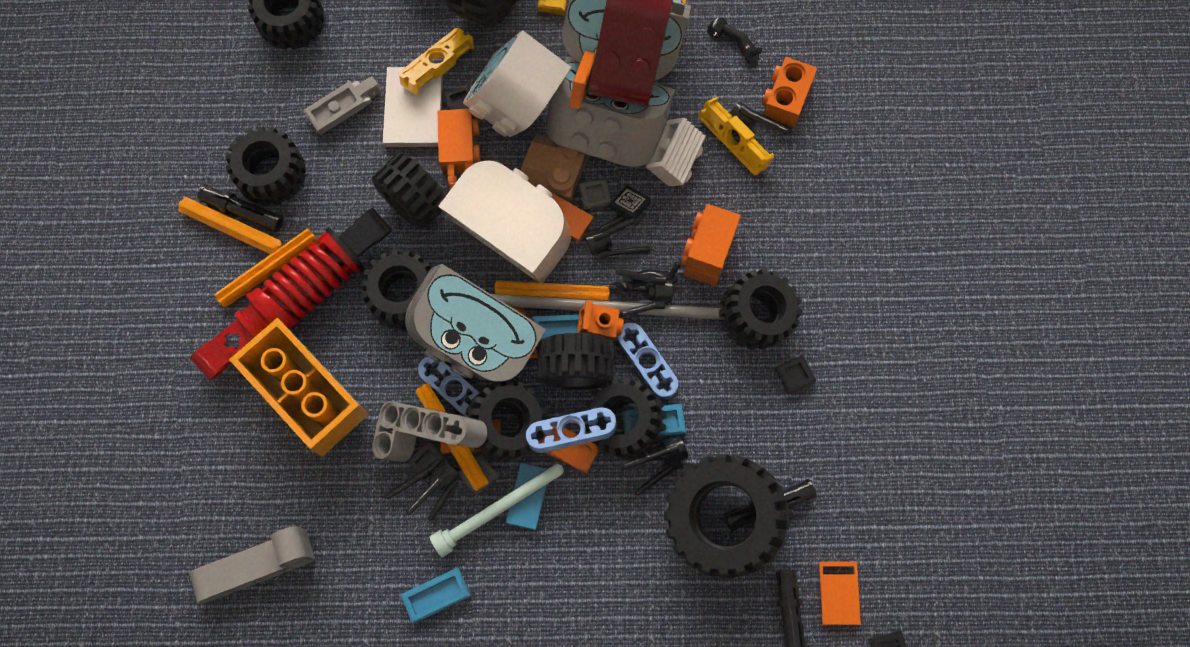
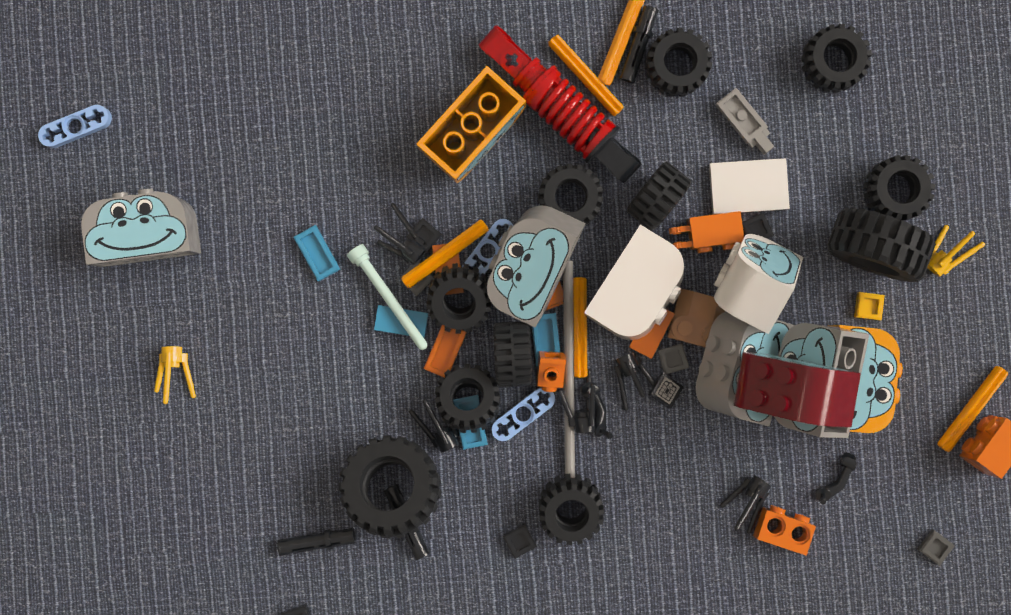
camera: 85 degrees right, 15 degrees up
(284, 552) = (329, 103): light grey beam -> none
(402, 423) = (452, 215): light grey beam -> none
(422, 70) = (782, 191): yellow piece -> none
(582, 80) = (760, 344): orange tile -> none
(582, 438) = (439, 338): light blue beam -> none
(676, 152) = (715, 430): white brick -> none
(709, 244) = (627, 465): orange piece -> none
(748, 149) = (747, 471): yellow piece -> none
(839, 595) = (338, 580): orange piece -> none

